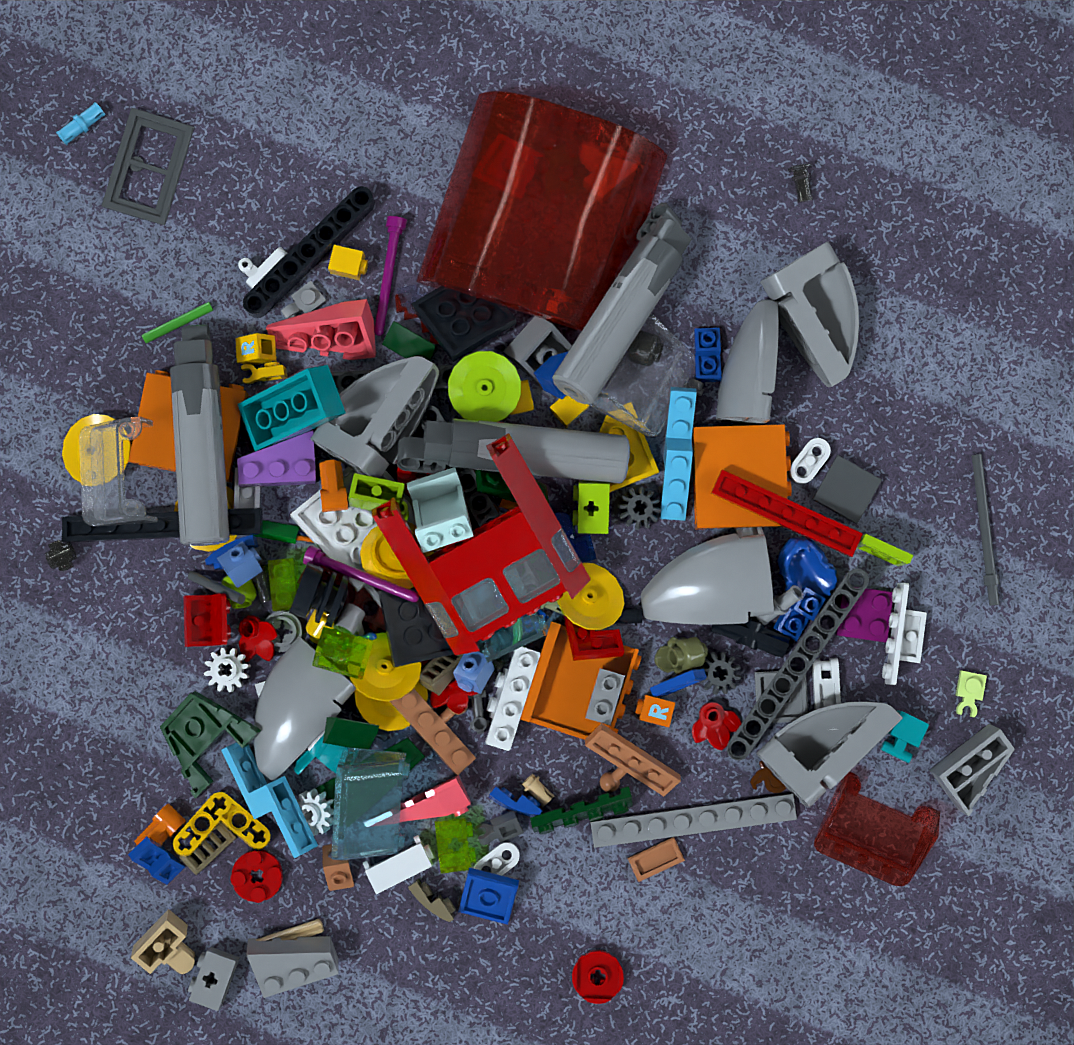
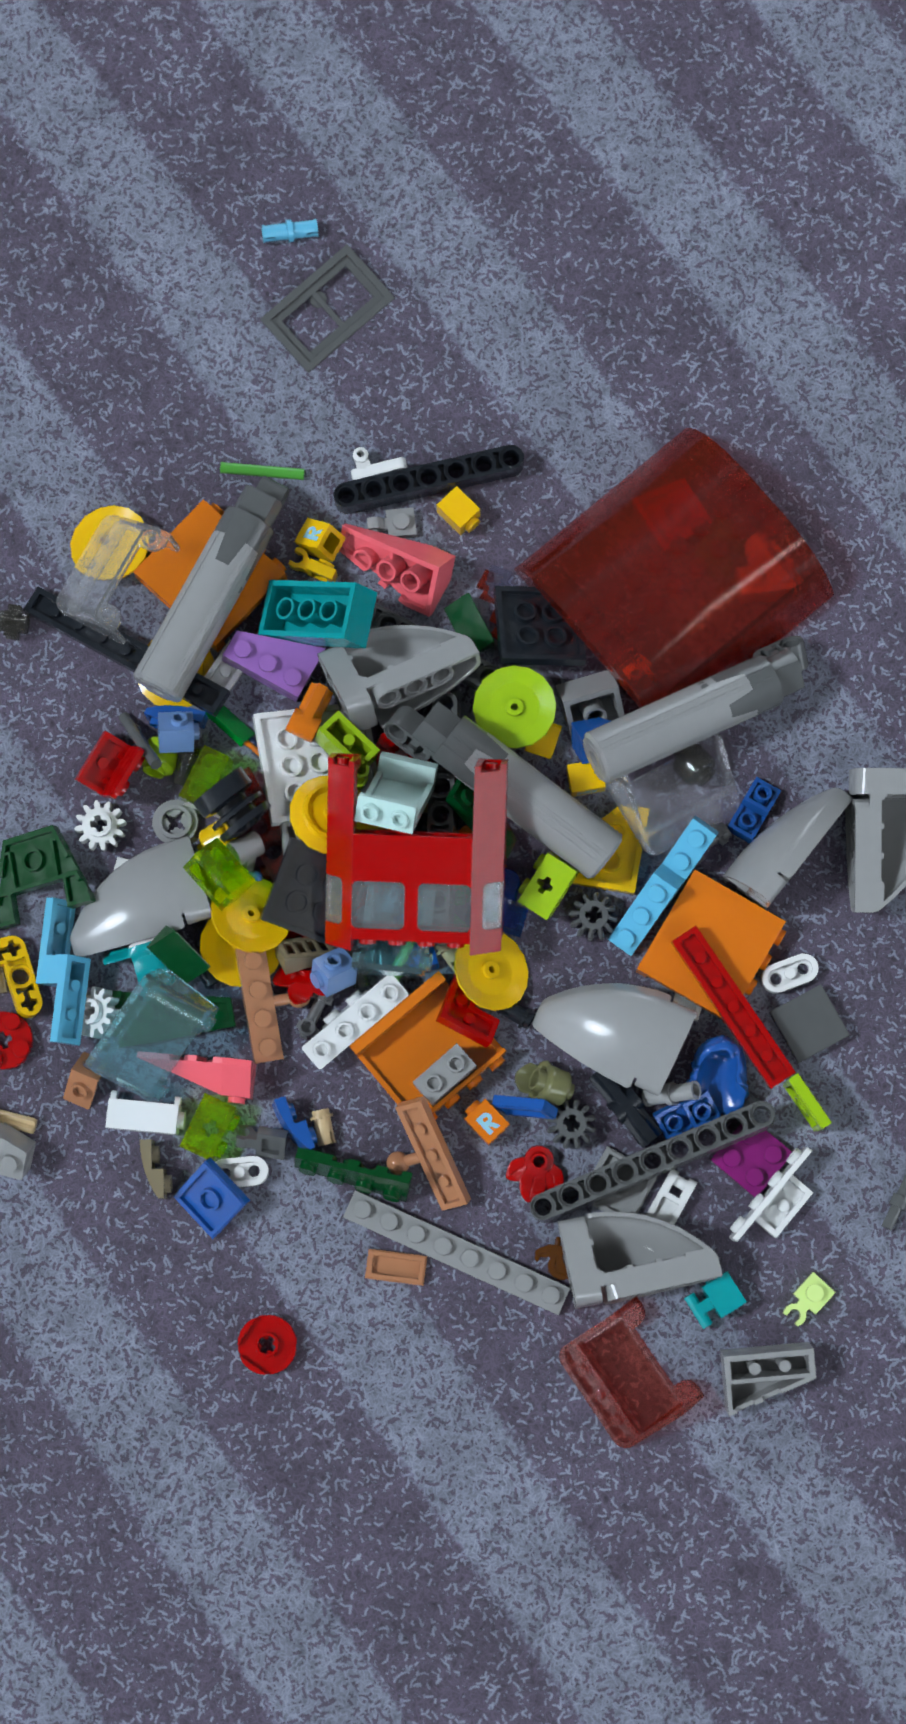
camera: 35 degrees right, 5 degrees down
(258, 639) = (147, 813): red plate -> none
(316, 556) = (253, 769): magenta piece -> none
(395, 226) = (527, 504): magenta piece -> none

